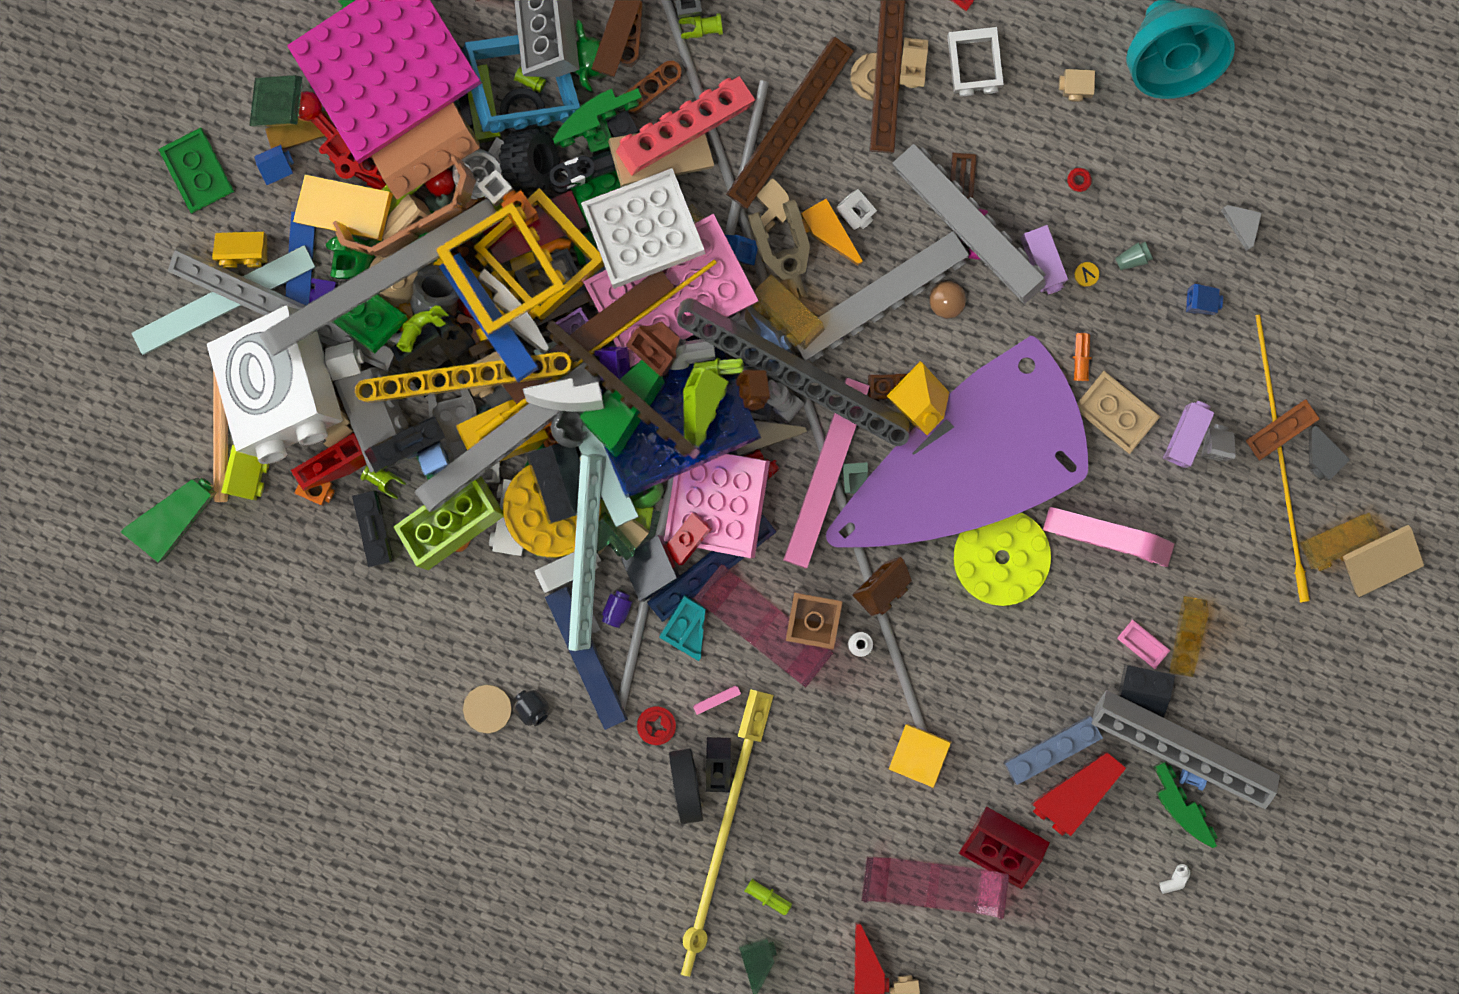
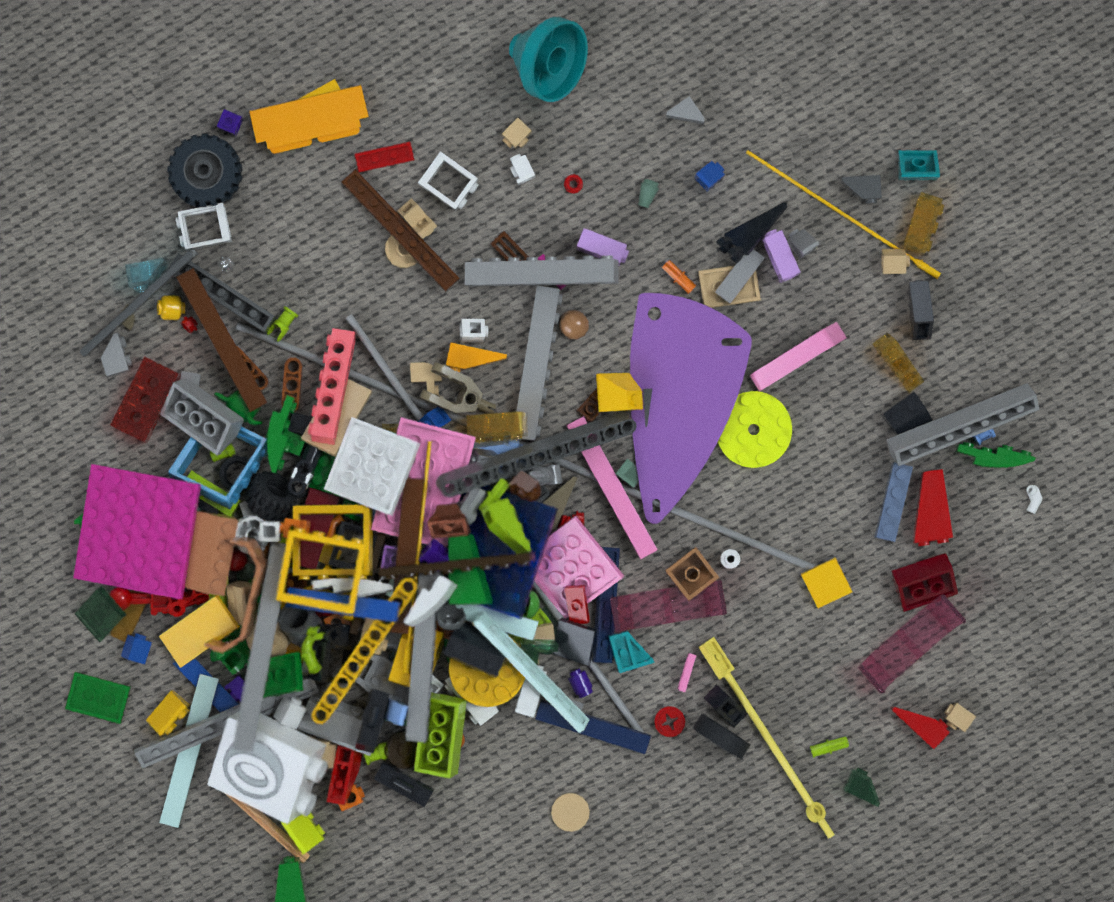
camera: 45 degrees left, 0 degrees up
(400, 497) = (399, 751): none -> dark brown tile
(531, 707) = (593, 785): black head -> none
(789, 122) = (386, 323): reddish brown plate -> none
(883, 586) = (708, 515): reddish brown slope -> none
(1049, 118) = (521, 168): none -> white brick
(1086, 274) = (632, 229): yellow tile -> none
(1135, 412) = (739, 276): none -> light grey tile
(1143, 644) = (879, 393): bright pink tile -> none
(1182, 387) = (749, 234): none -> black flag
(1257, 613) = (920, 310): none -> black slope
(1281, 546) = (894, 261): none -> tan brick
(1282, 429) = (827, 198): dark orange hinge -> none
(1383, 560) = (956, 209): tan tile -> none
(1391, 488) = (918, 165): none -> teal slope

